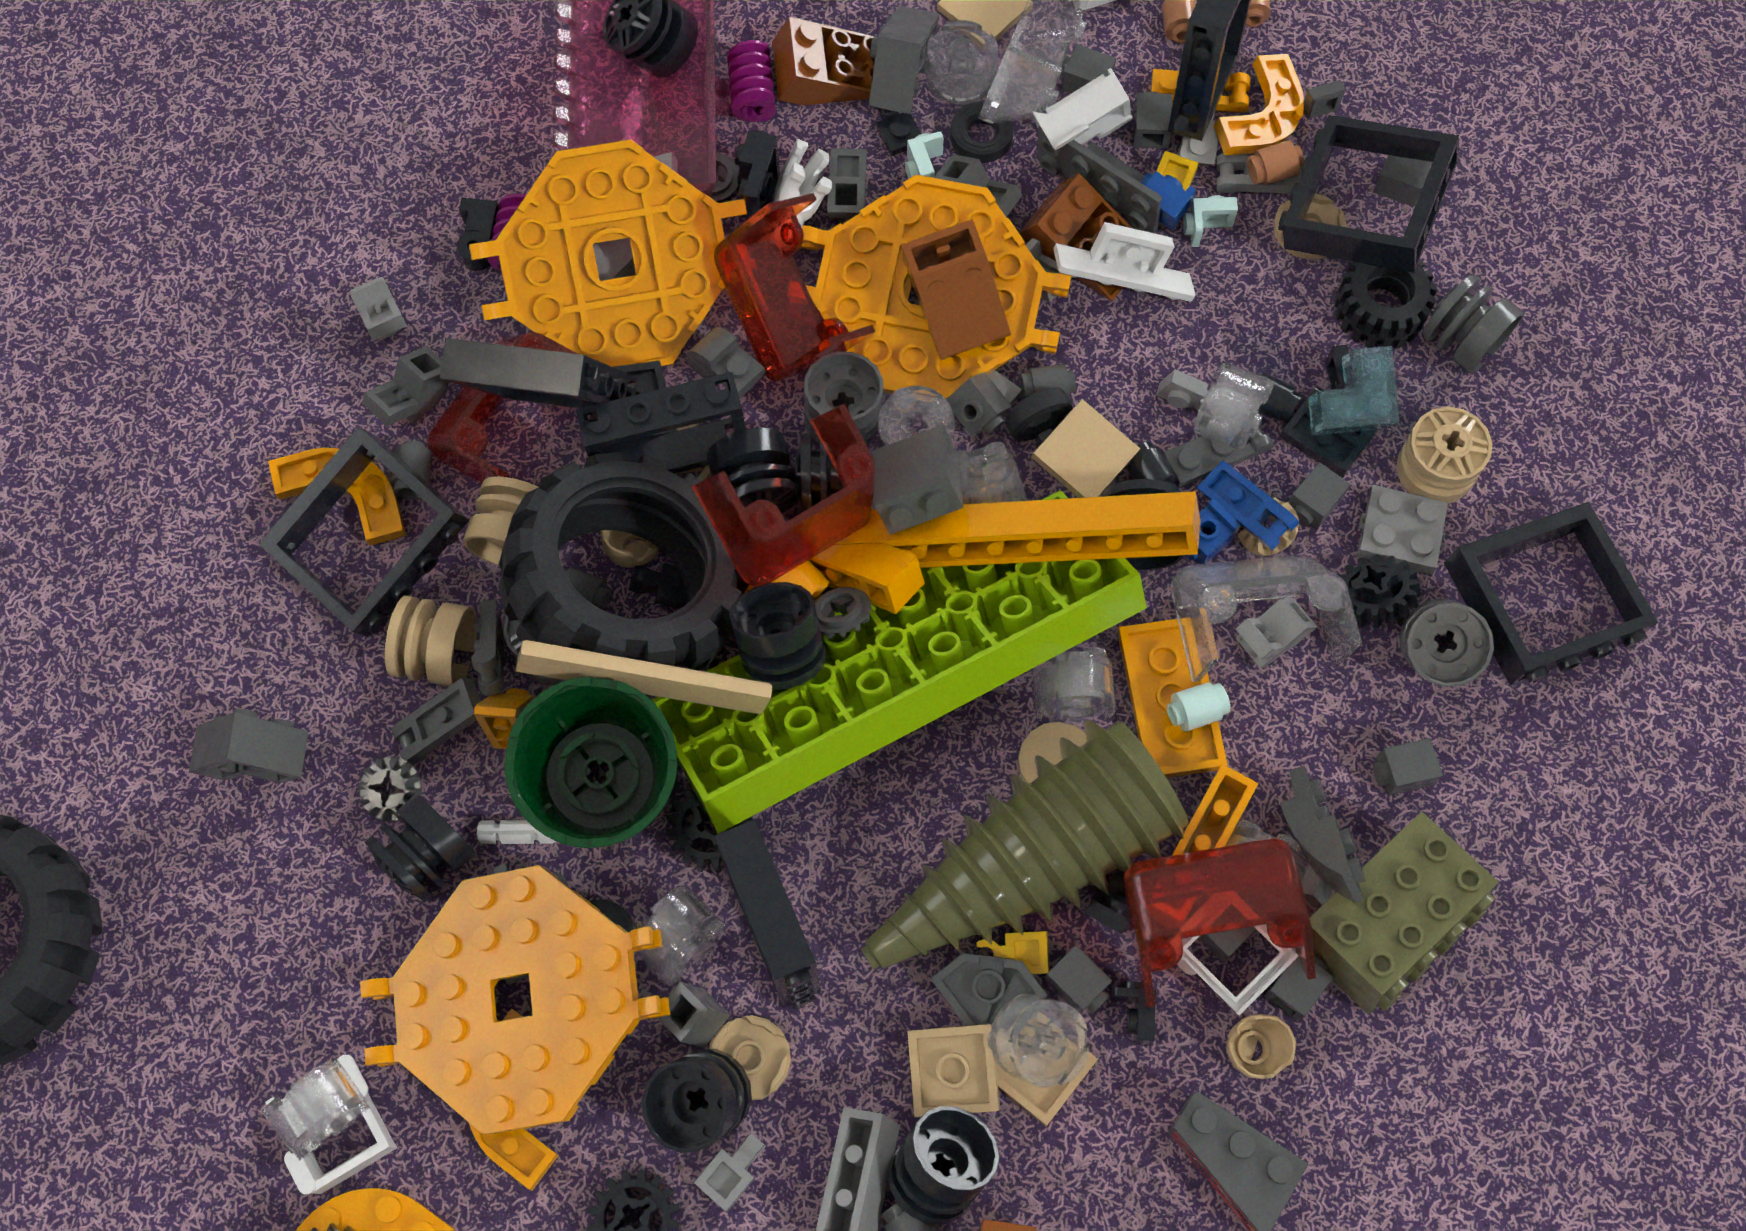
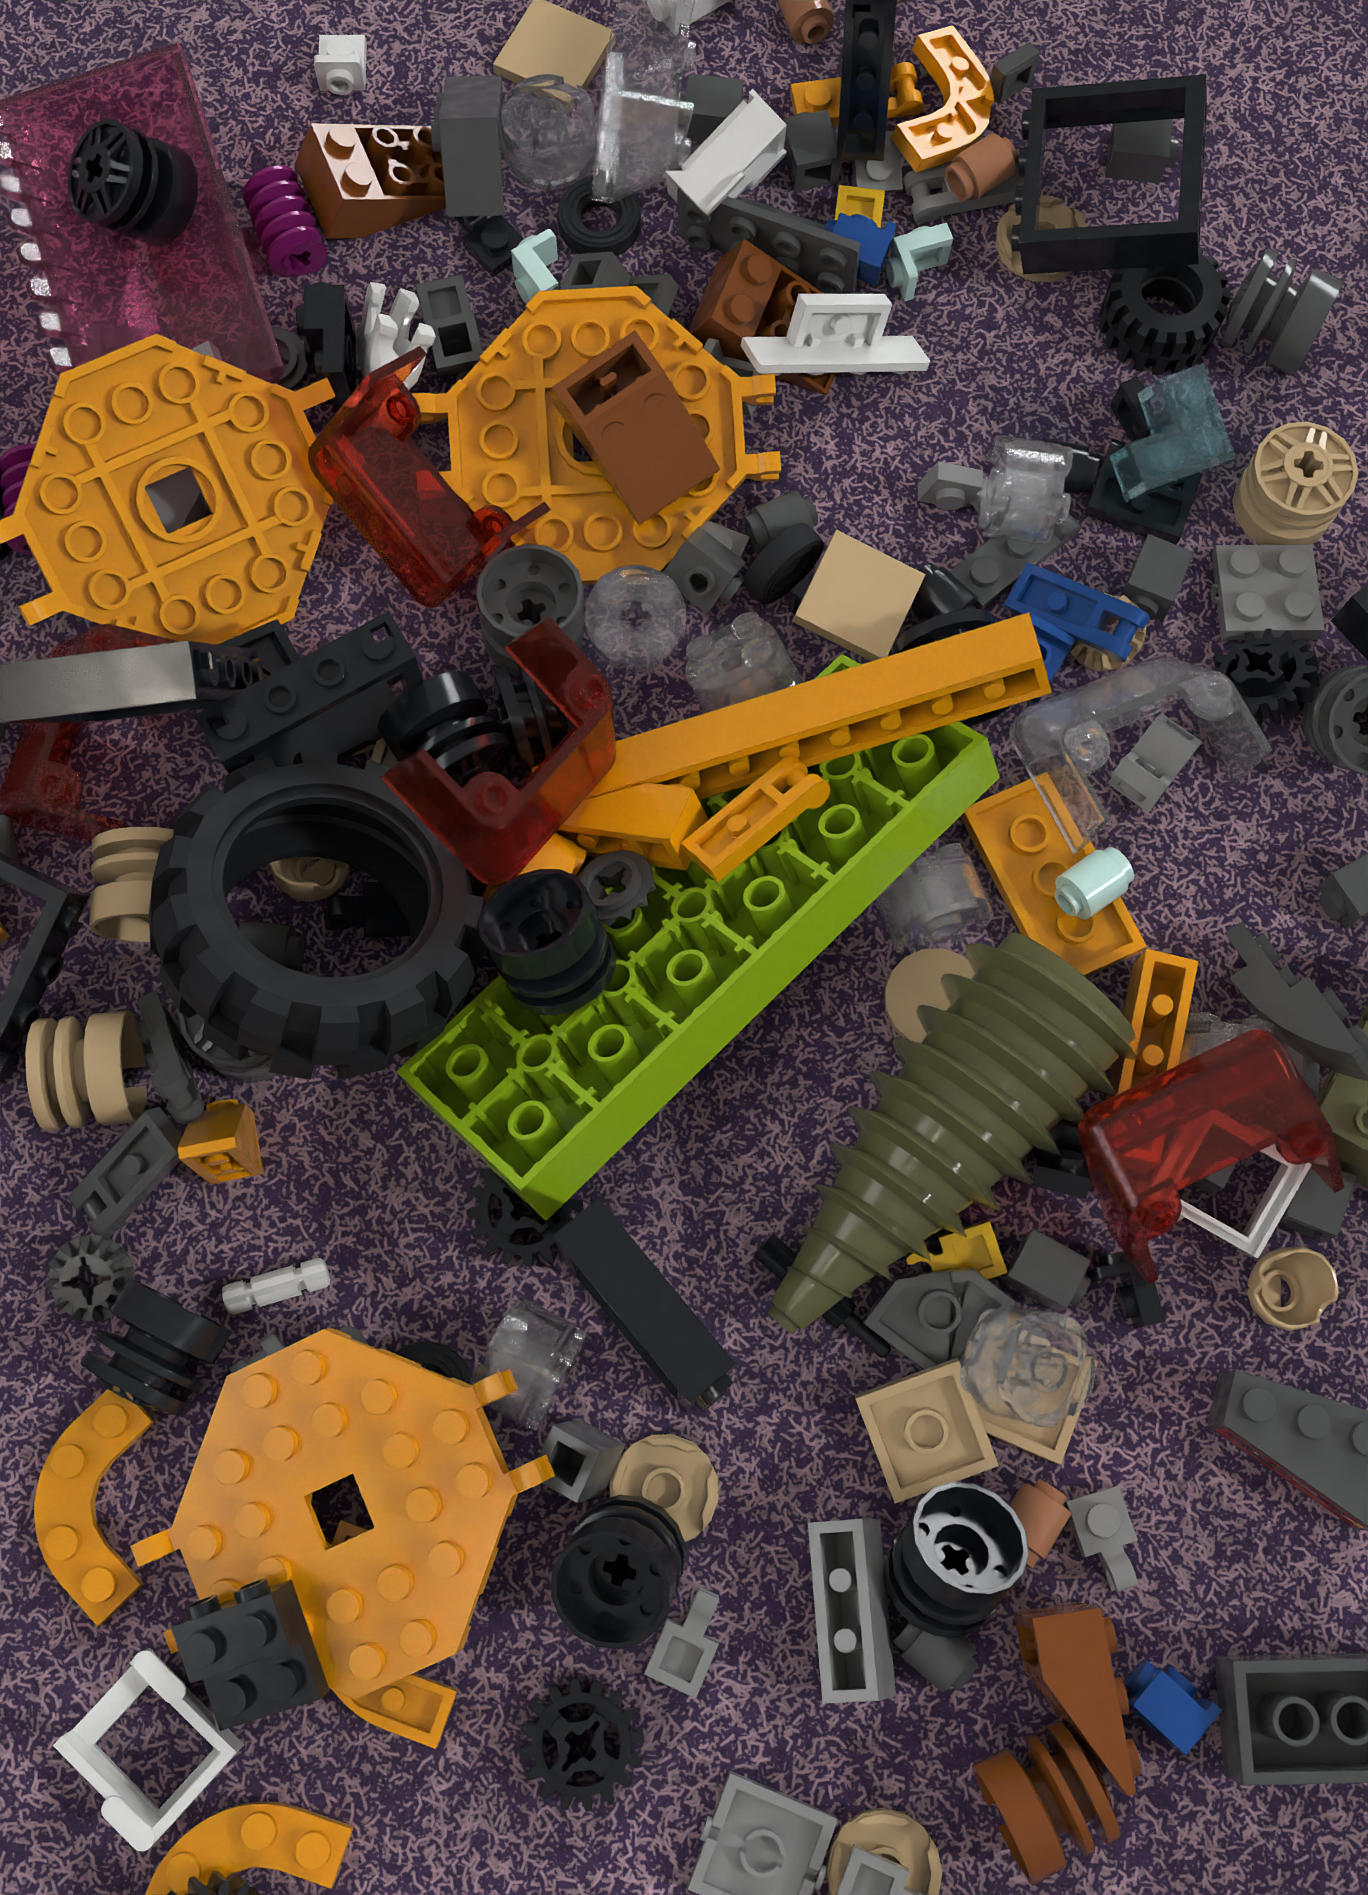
camera: 20 degrees left, 5 degrees up
(316, 1108) = (122, 1736): clear brick -> none
(325, 941) = (67, 1511): none -> light orange plate
(420, 1078) = (251, 1652): none -> black plate
(571, 732) = (300, 1189): dark green cone -> none
(645, 676) = (389, 1049): tan tile -> none
(721, 354) = (355, 595): dark grey brick -> none
(914, 966) = (777, 1256): none -> black axle
(916, 480) = (663, 689): dark grey brick -> none
(956, 587) = (755, 817): none -> light orange plate
(1016, 1160) = (1042, 1517): none -> nougat brick
(1065, 1182) = (1102, 1527): none -> light grey plate

